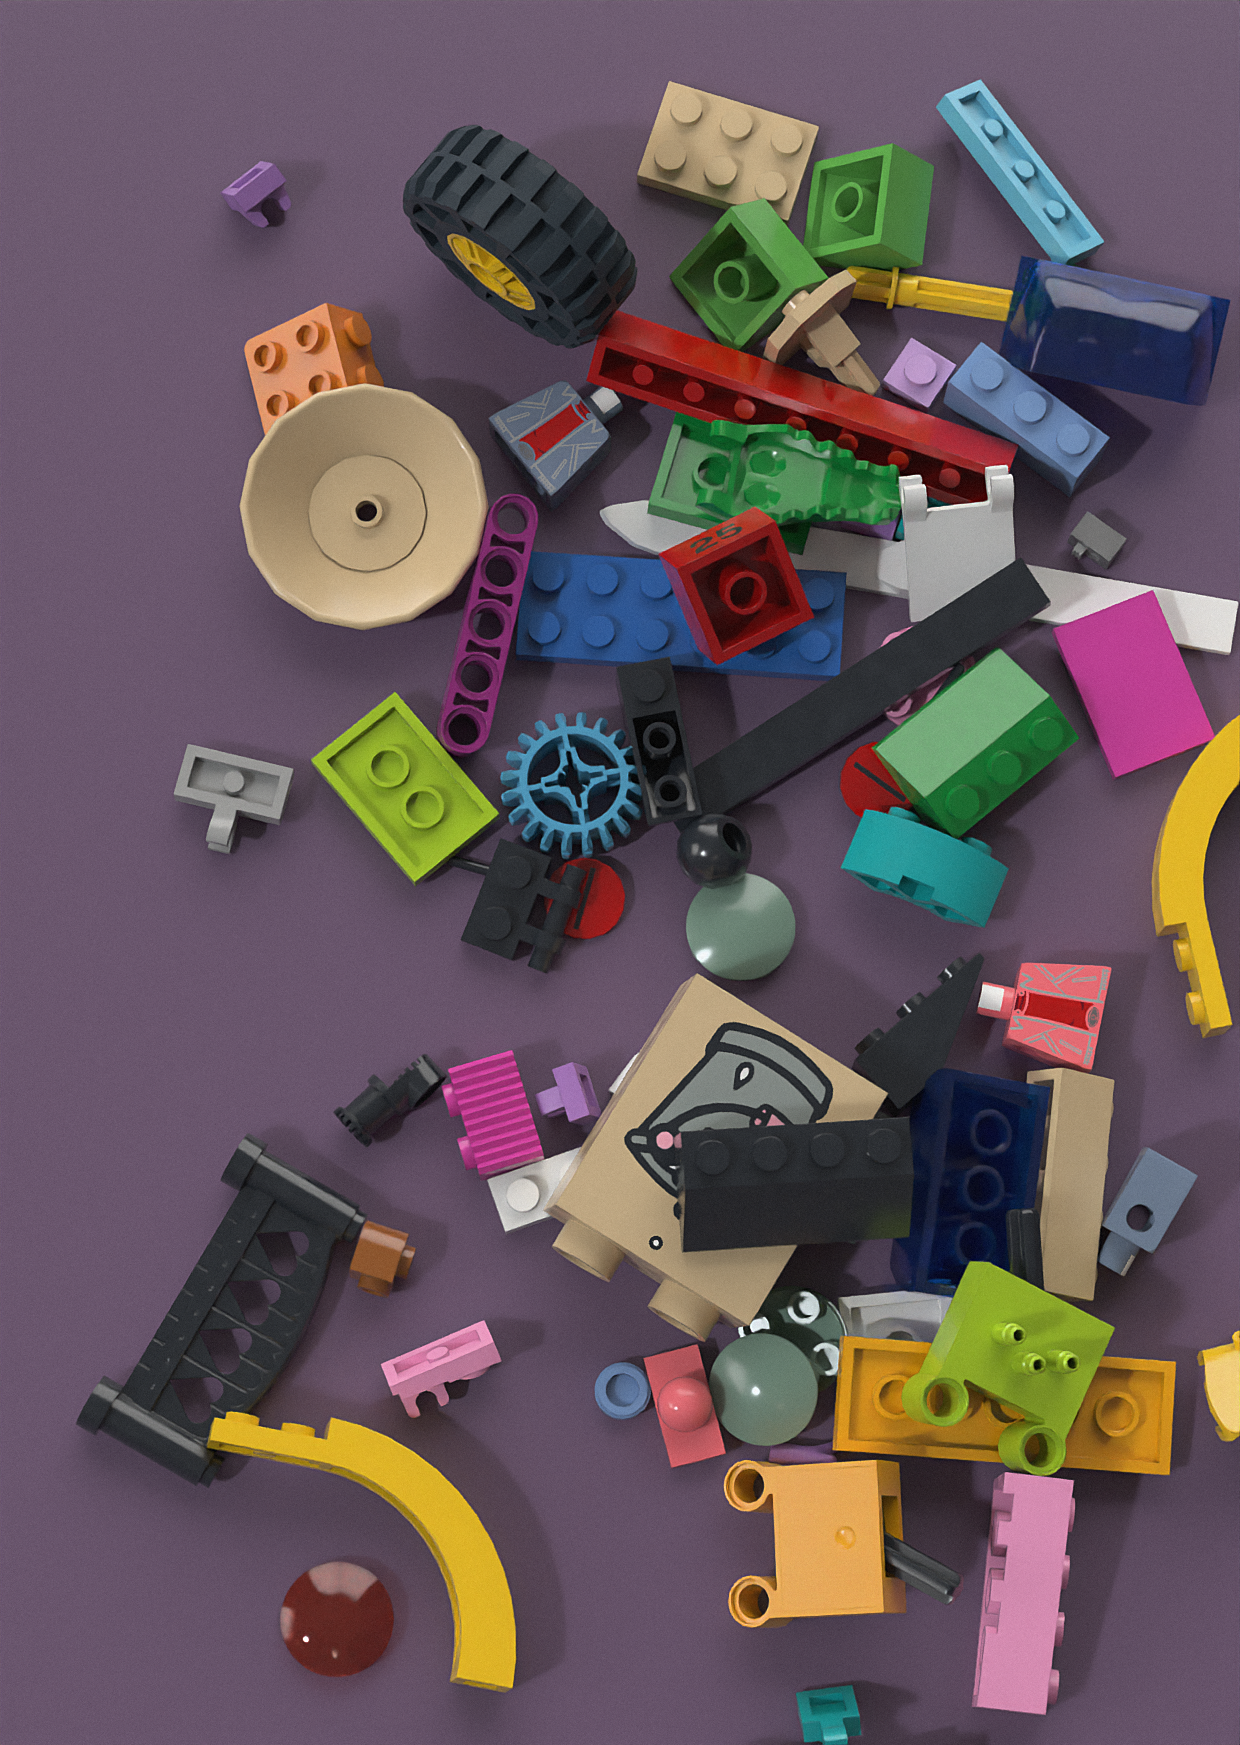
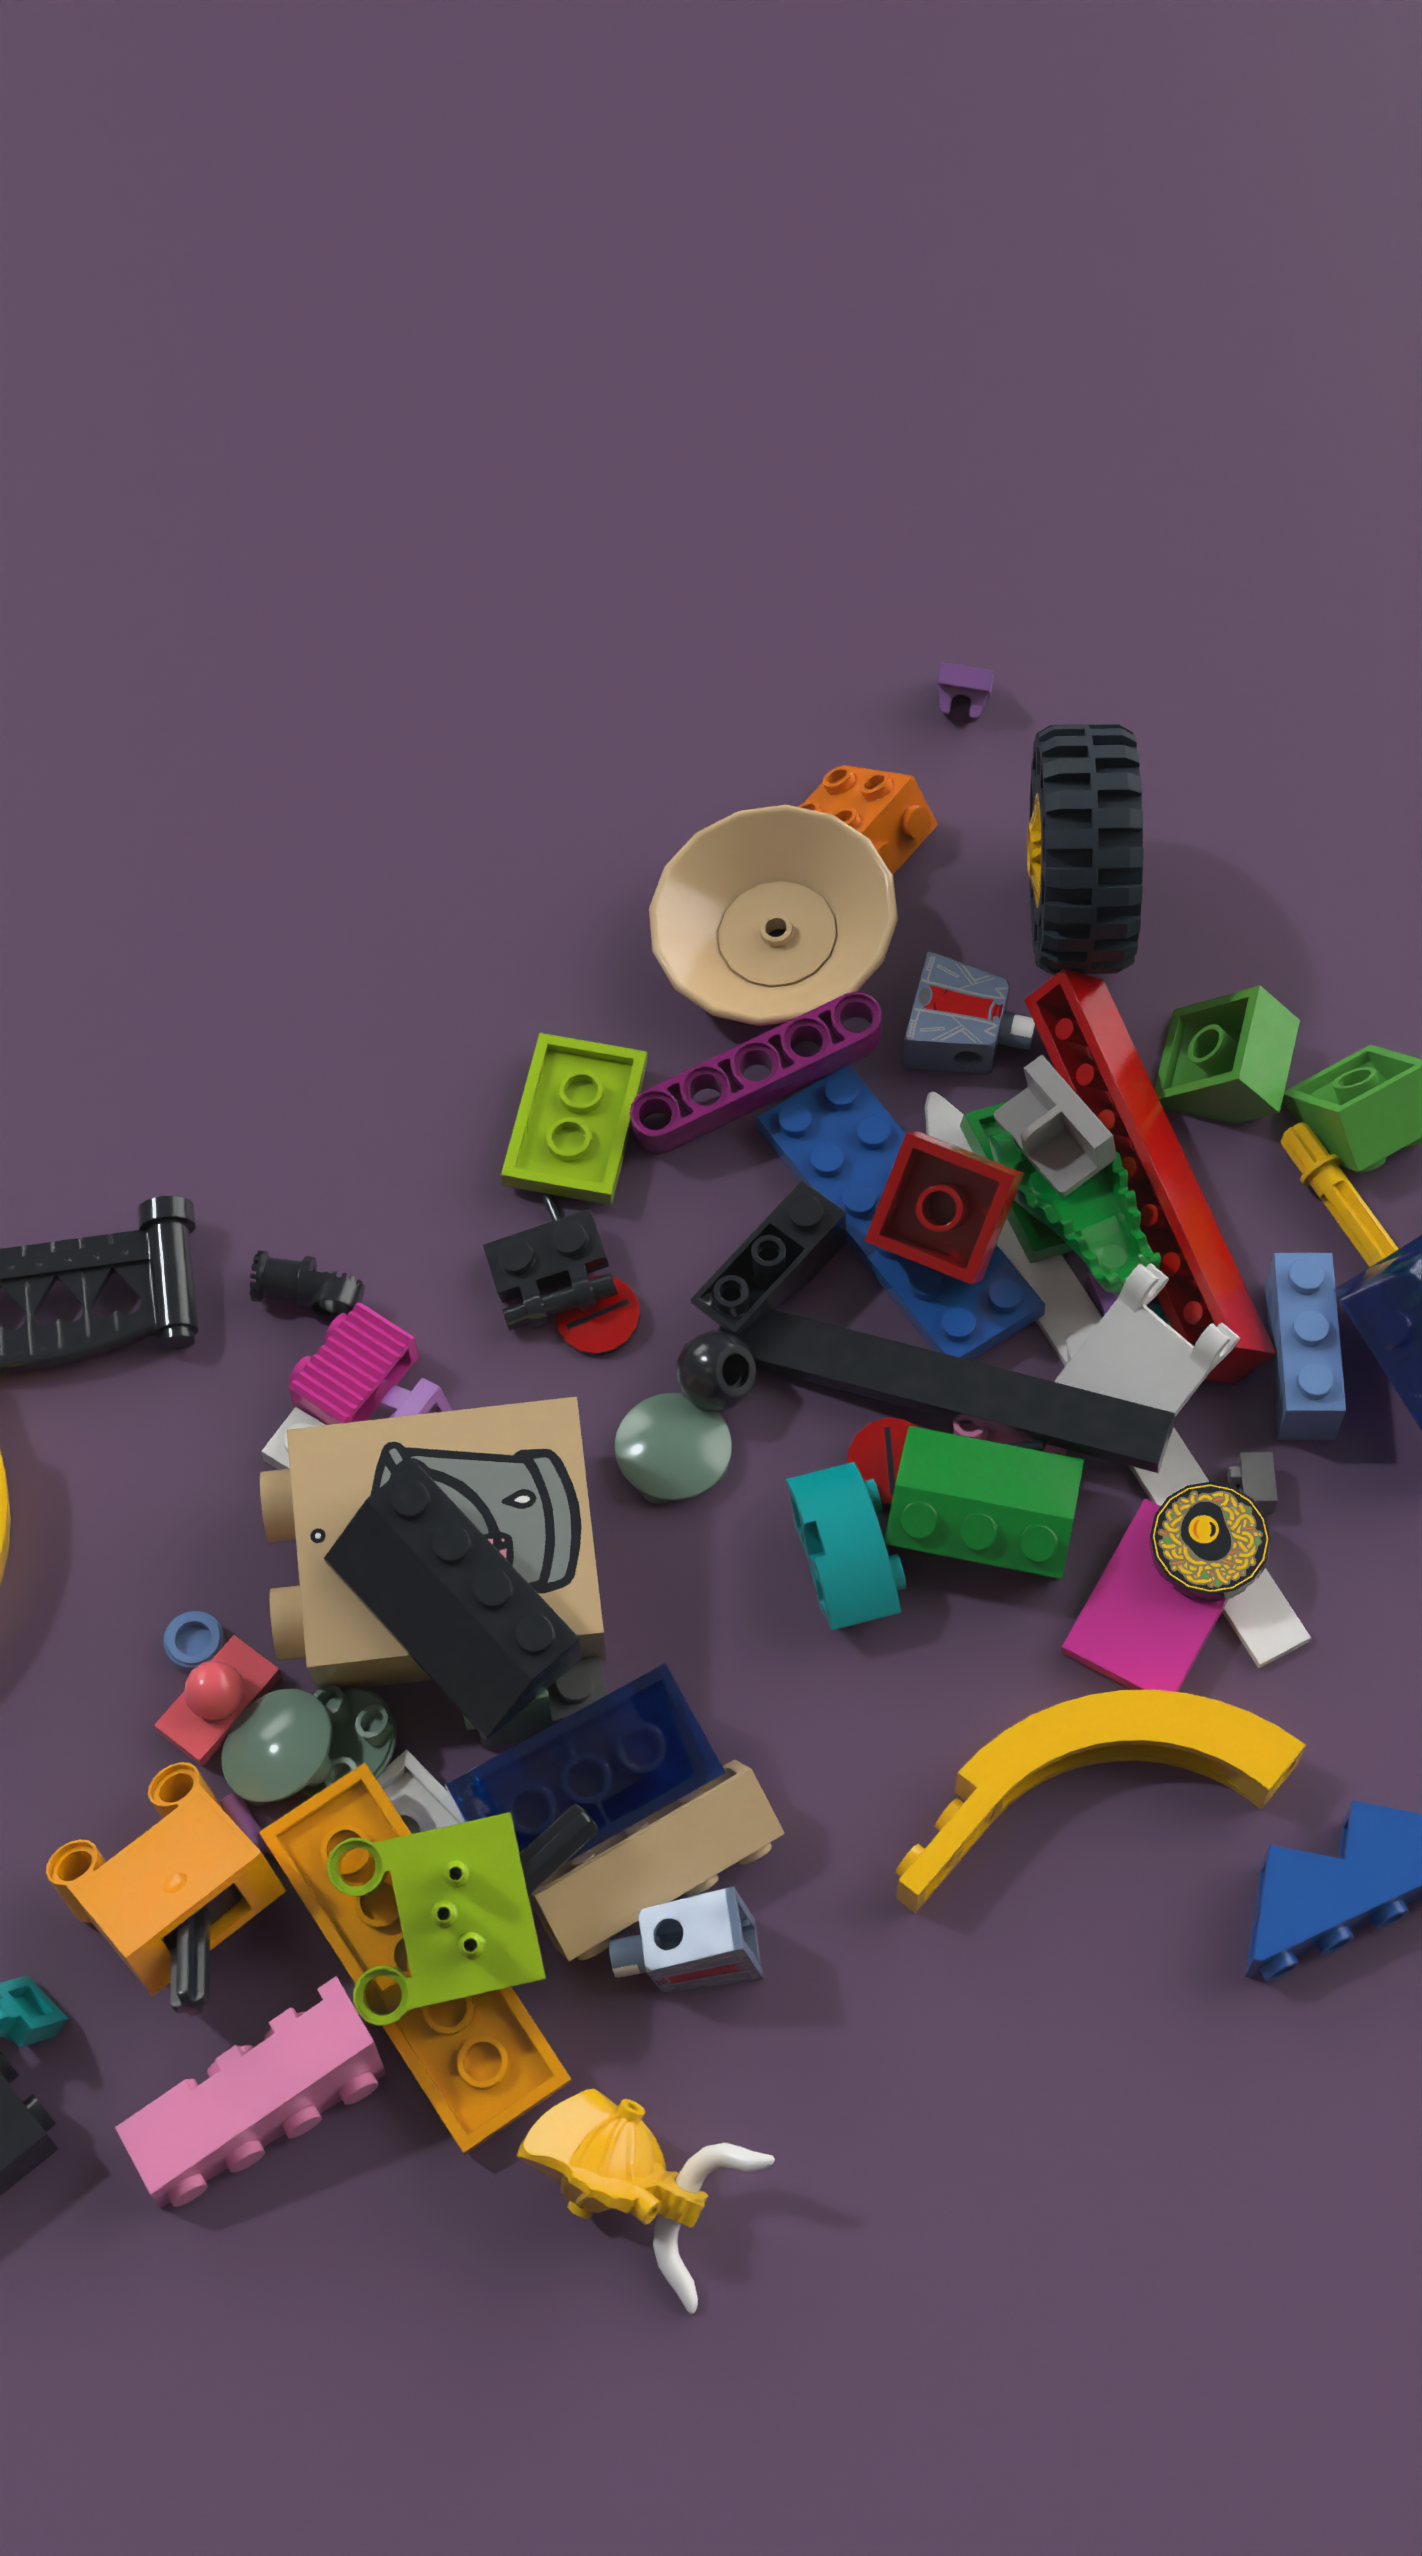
camera: 55 degrees right, 15 degrees down
(232, 789) = (468, 998): light grey plate -> none
(381, 1258) = (163, 1372): dark orange plate -> none
(451, 1358) = (97, 1475): bright pink plate -> none
(565, 740) = (673, 1205): dark azure gear -> none
(726, 151) = (1319, 974): tan plate -> none
(735, 455) = (1056, 1129): none -> light grey panel
(817, 328) = (1228, 1124): tan piece -> none
(918, 375) = (1262, 1237): lavender plate -> none
(920, 1040) = (700, 1650): black slope -> none
(1050, 1012) = (806, 1743): coral torso -> none
(1126, 612) = (1210, 1541): none -> tile

